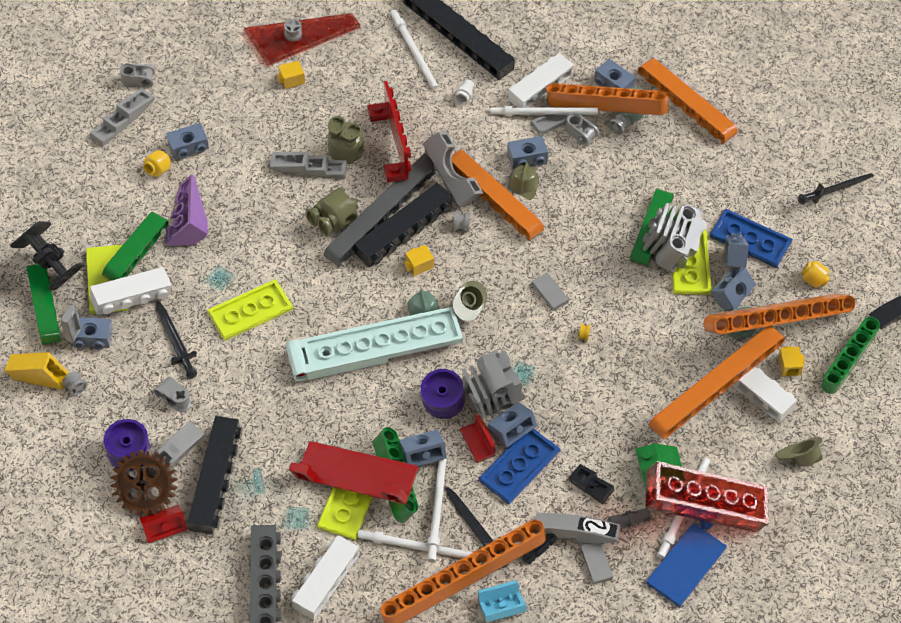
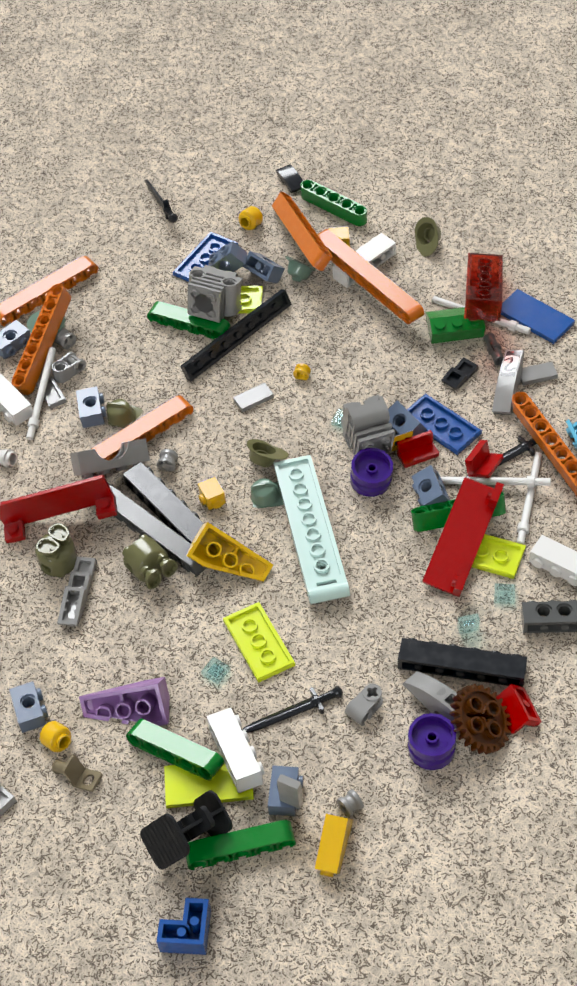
camera: 80 degrees left, 5 degrees down
(121, 182) = (76, 773): none -> dark tan bracket
(341, 267) = (223, 553): none -> yellow wedge
(461, 498) = (481, 462): none -> red panel
(634, 271) = (235, 335): none -> black plate

